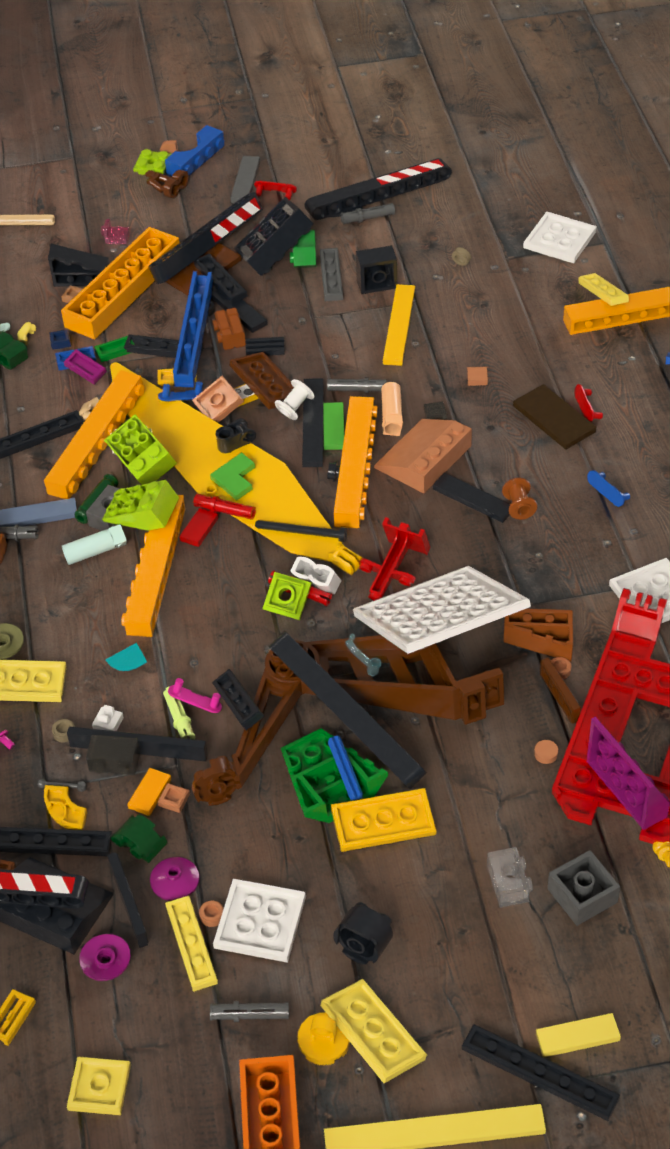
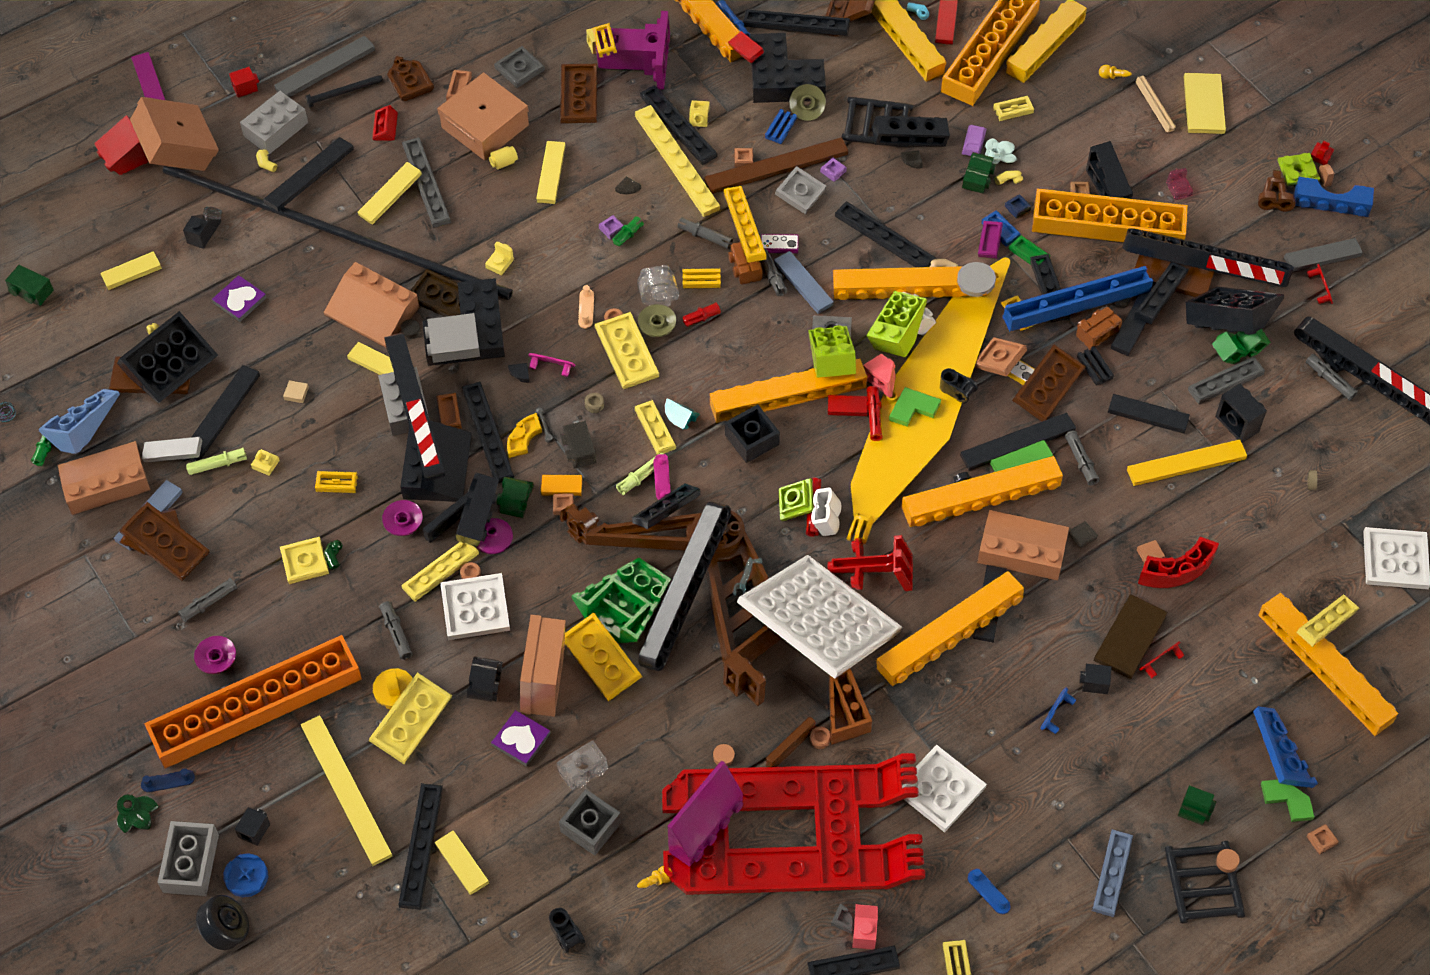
camera: 65 degrees right, 10 degrees up
(18, 603) = (701, 314): none -> red axle
(42, 192) = (1204, 103): none -> light yellow tile
(80, 514) = (858, 318): dark green axle -> none
(94, 544) = (786, 337): light aqua piece -> none
(107, 1051) = (330, 553): none -> dark green arm
(108, 719) = (616, 428): white tile -> none
(127, 687) = (655, 427): none -> light yellow tile
(132, 379) = (976, 279): none -> light grey tile
(145, 143) = (1322, 153): none -> red tile
(147, 867) = (477, 510): none -> black wedge
(148, 744) = (600, 458): black tile -> none
(165, 395) = (993, 325): blue piece -> none
(188, 483) = (881, 373): none -> coral slope
(191, 604) = (752, 433): none -> black brick
(294, 399) = (1028, 414): white hose -> none
(300, 529) = (883, 513): black bar -> none
(335, 330) = (1148, 413): none -> black tile
(345, 768) = (631, 608): blue axle -> none
(385, 862) = (542, 666): none -> nougat container
(391, 409) = (1063, 497): light nougat piece -> none
(446, 928) = (520, 738): none -> tile
(491, 526) = (950, 629): none -> light orange brick
(507, 350) = (1181, 570): none -> red brick
(522, 505) = (998, 640): dark orange hose -> none
(589, 449) = (1095, 678): none -> black brick

